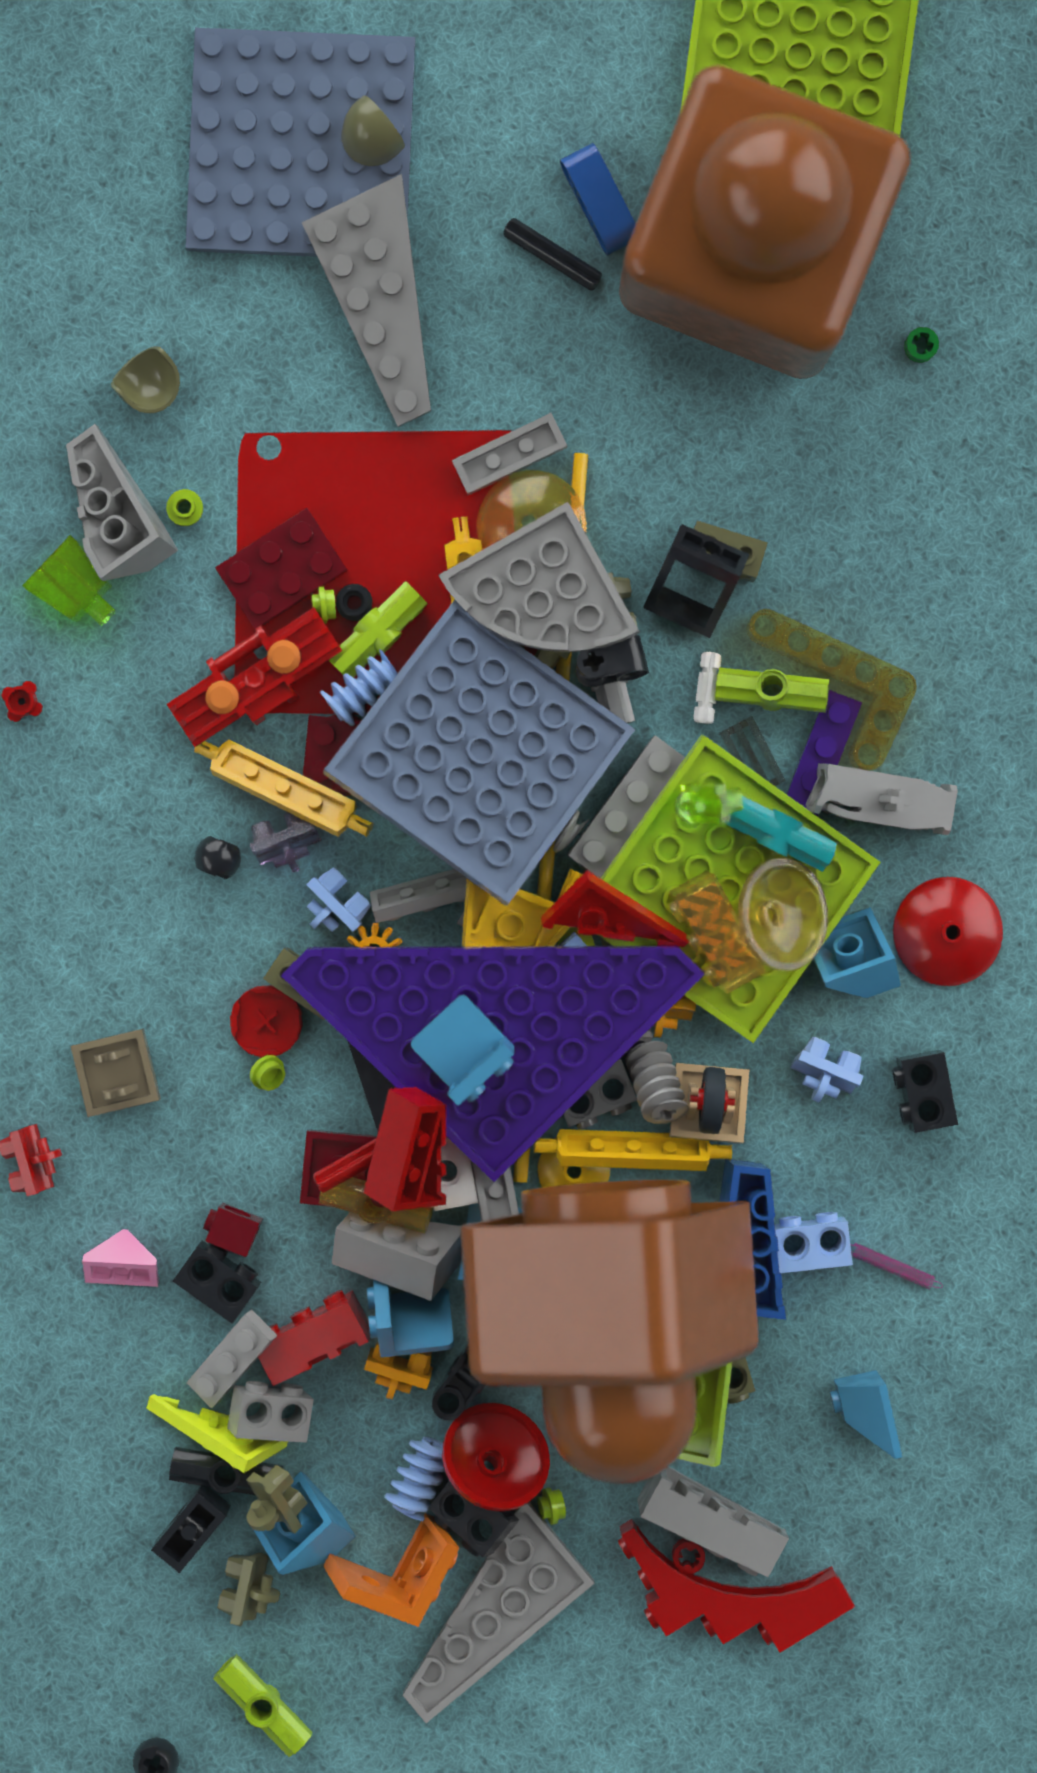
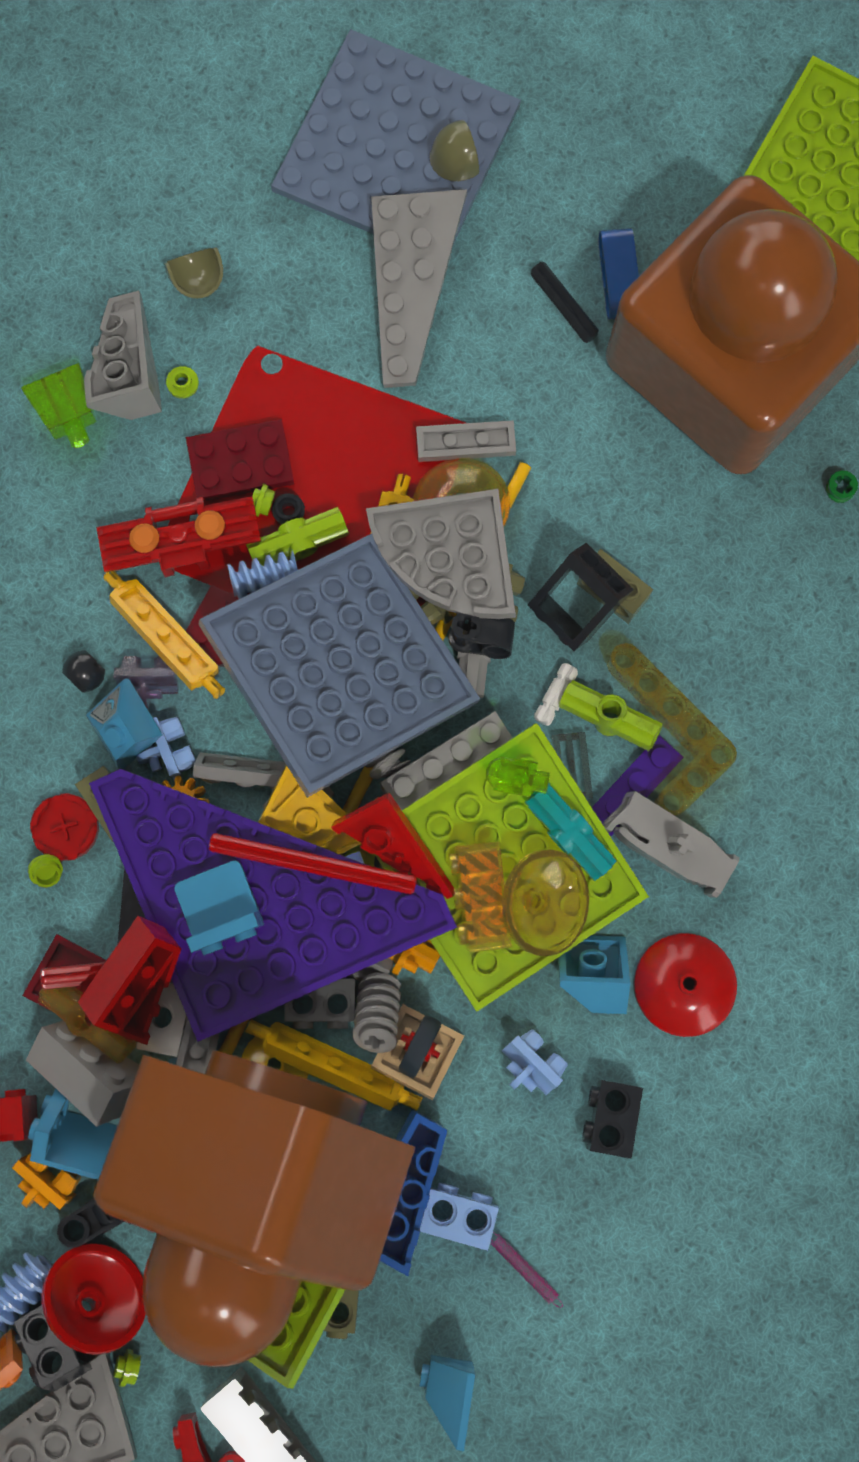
camera: 20 degrees right, 10 degrees down
(283, 896) = (124, 724): none -> dark azure slope
(538, 969) = (312, 863): none -> red axle

